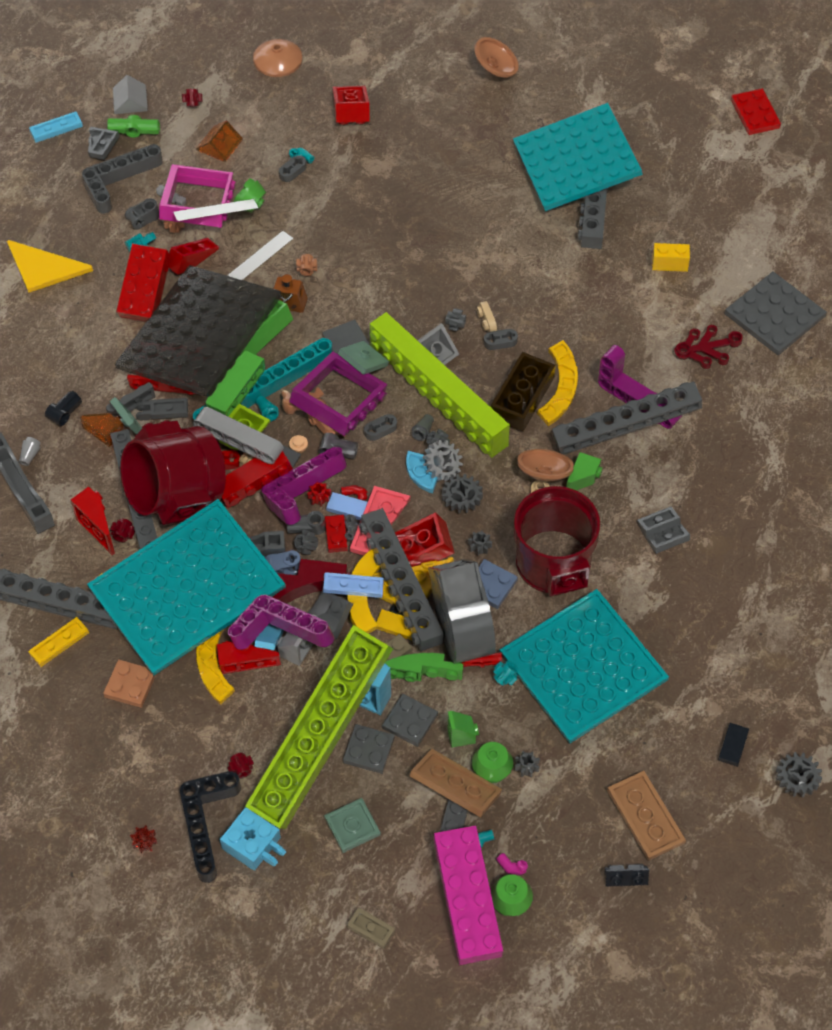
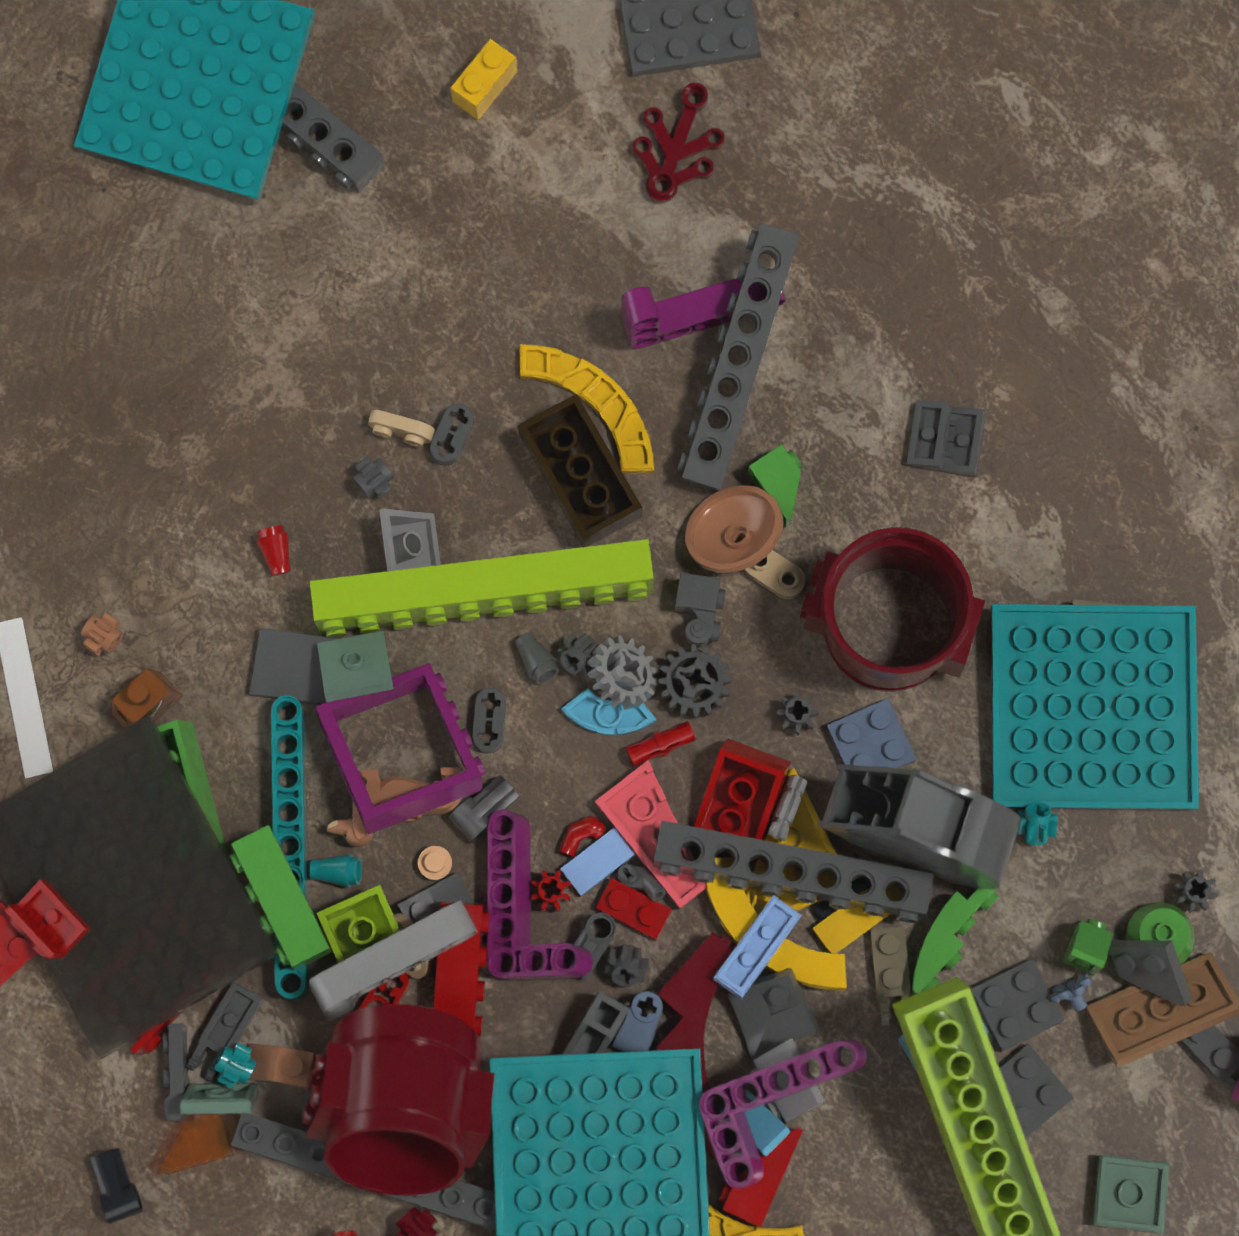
camera: 55 degrees left, 20 degrees up
(148, 415) = (234, 1065): none -> teal gear
(161, 306) = (47, 921): none -> red bracket
(395, 303) = (275, 549): none -> red cone
(418, 565) = (787, 808): none -> light grey axle
(422, 498) = (660, 743): none -> red pin
(434, 737) = (1073, 991): none -> sand blue plant
(470, 760) = (1151, 967): none -> dark grey wing
(502, 475) = (701, 598): none -> dark grey brick

